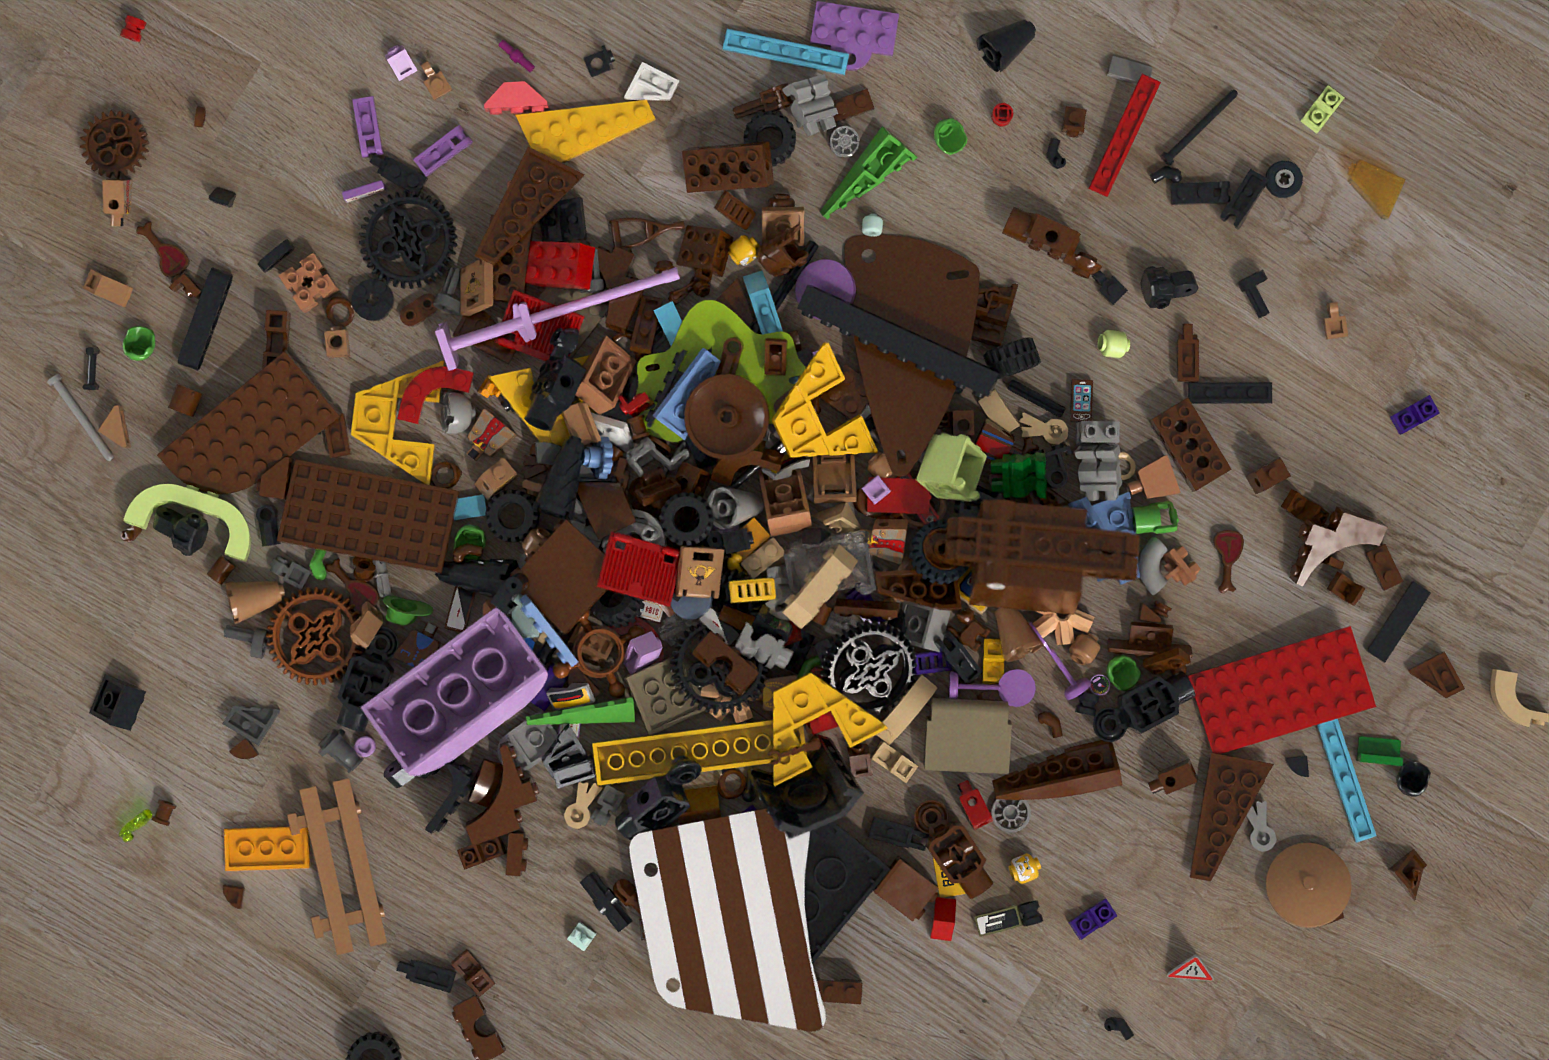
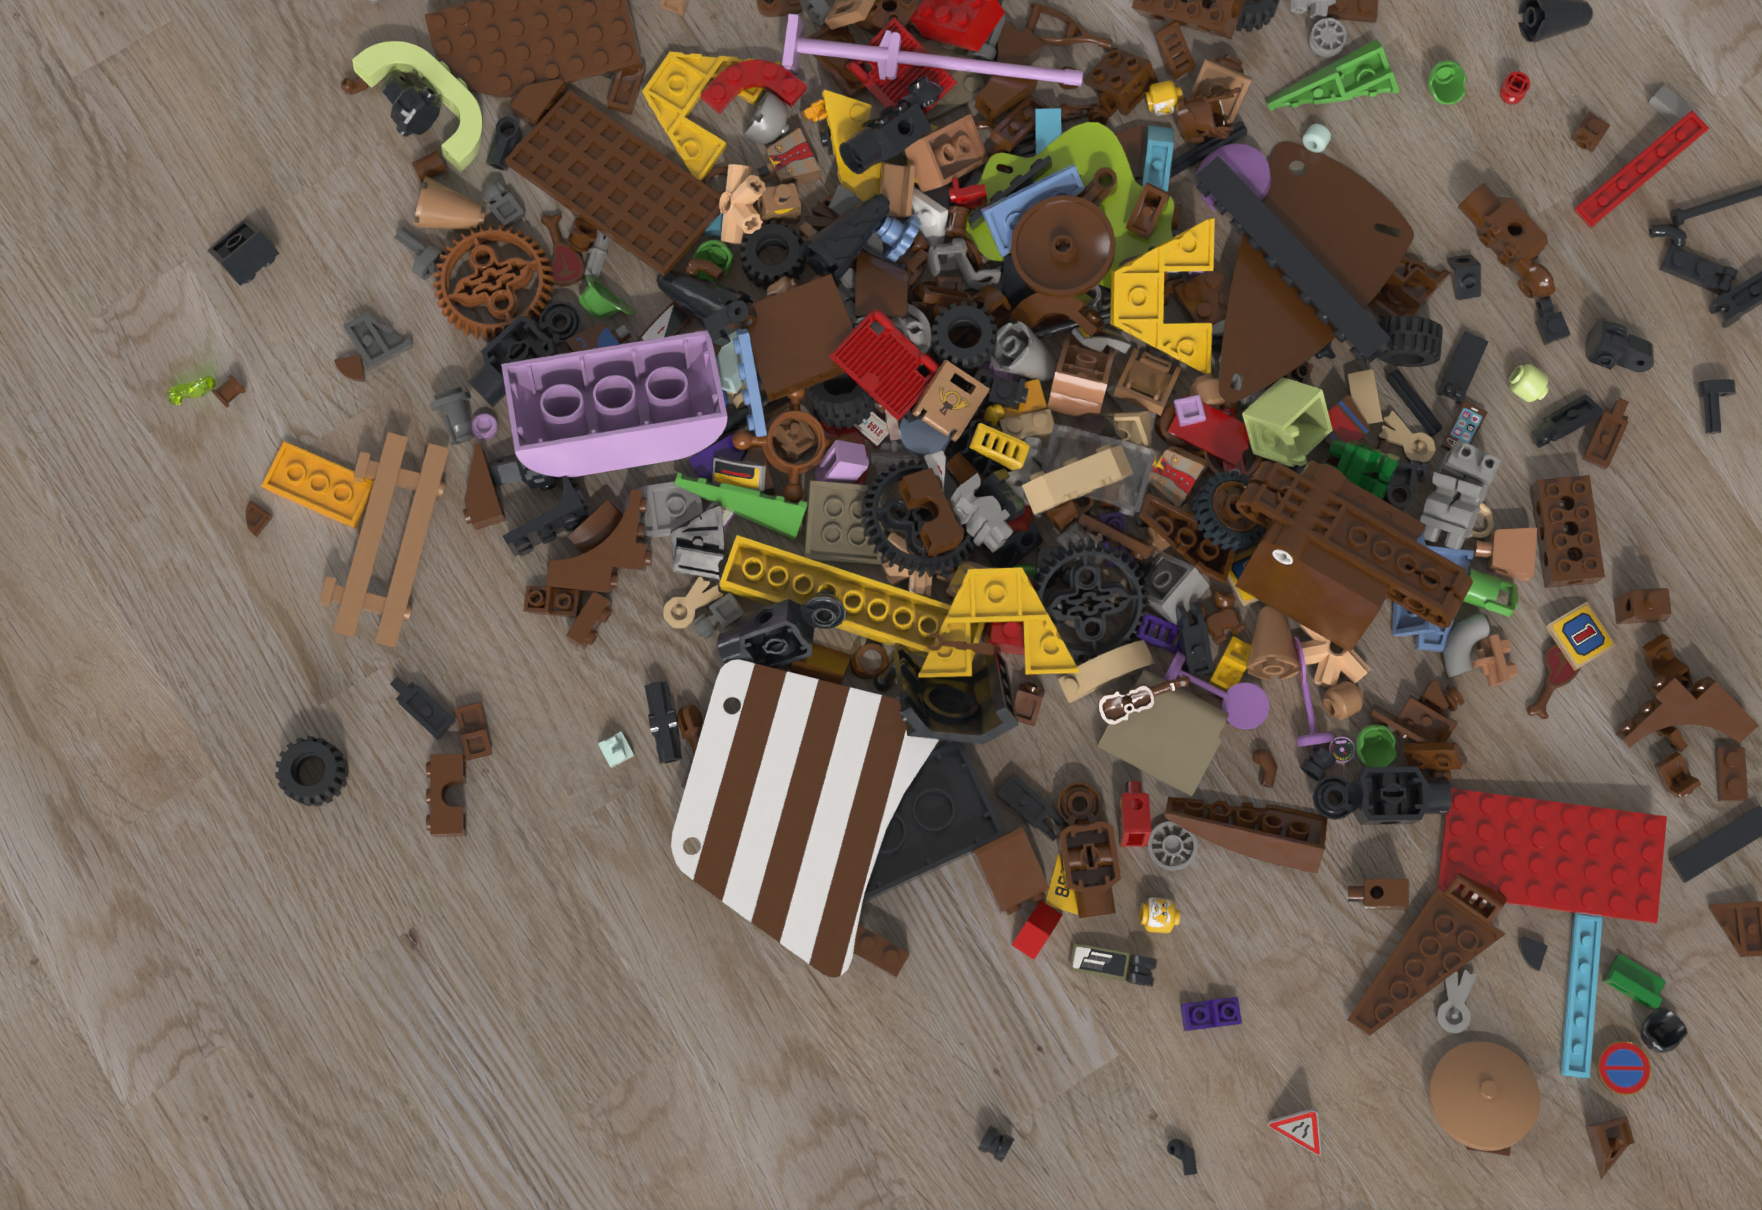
camera: 25 degrees right, 10 degrees down
(317, 566) = (533, 210): bright green arm -> none
(367, 625) = (553, 292): medium nougat slope -> none
(390, 800) = (481, 494): none -> reddish brown slope
(468, 492) = (737, 204): none -> light nougat piece
(893, 761) = (1065, 724): tan slope -> none
(928, 736) = (1117, 706): none -> reddish brown piece
(967, 415) = (1323, 381): reddish brown brick -> none
(1031, 282) = (1466, 277): none -> black bracket
(1053, 155) = (1551, 157): black arm -> none
(1059, 353) = (1462, 367): none -> black hinge
(1153, 359) = (1566, 420): none -> black hinge
(1230, 393) = (1638, 499): black tile -> none
(1233, 517) = (1580, 636): none -> slope
(1253, 746) = (1470, 904): none -> reddish brown slope
(1397, 818) = (1624, 1068): none -> piece

